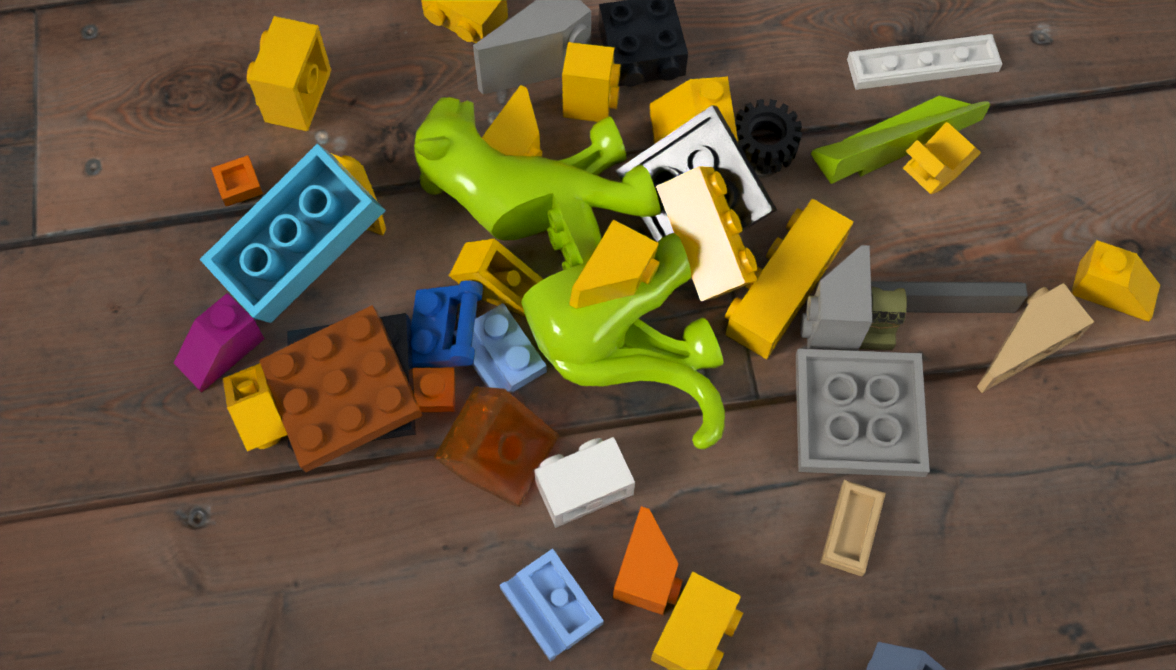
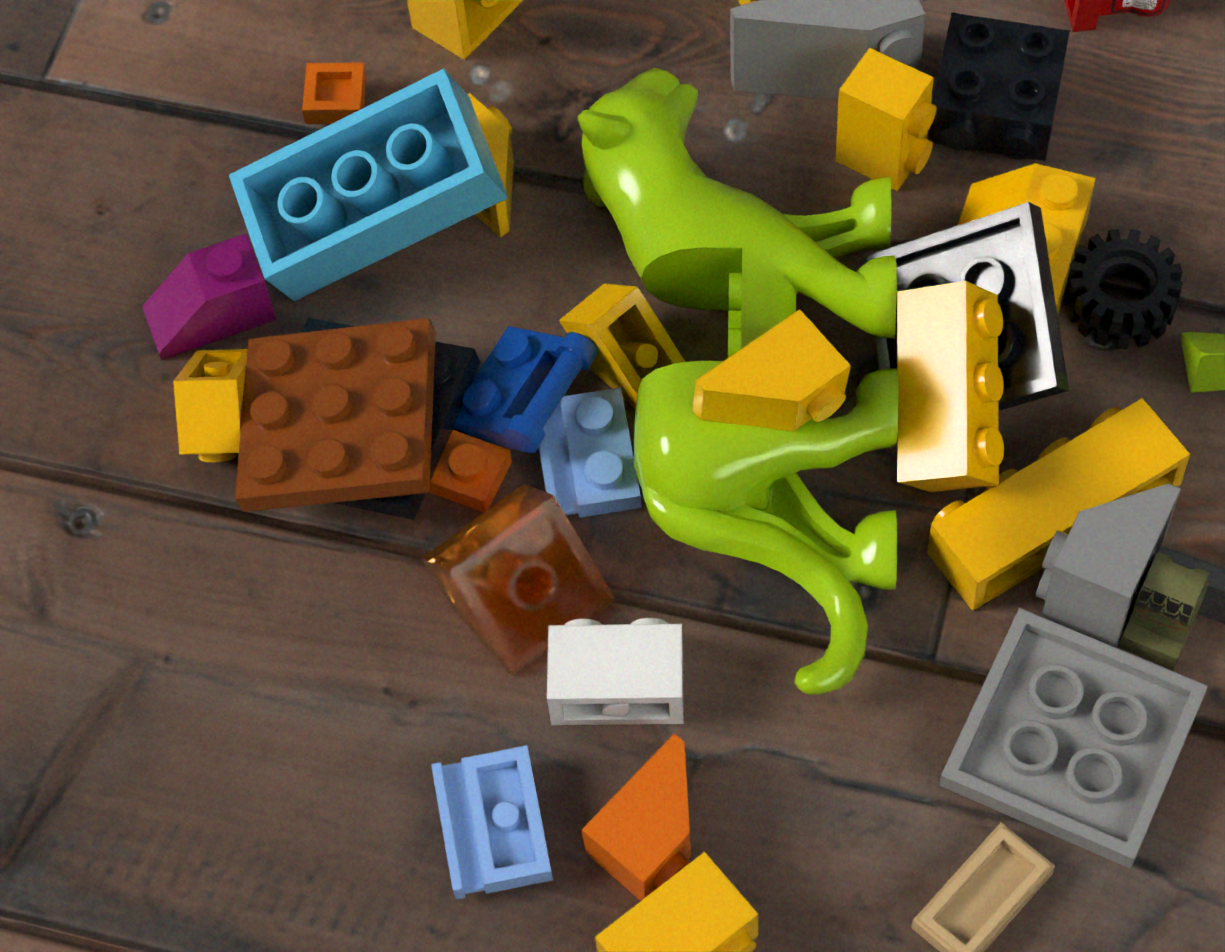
camera: 30 degrees right, 5 degrees down
(515, 127) = (749, 149): yellow slope -> none

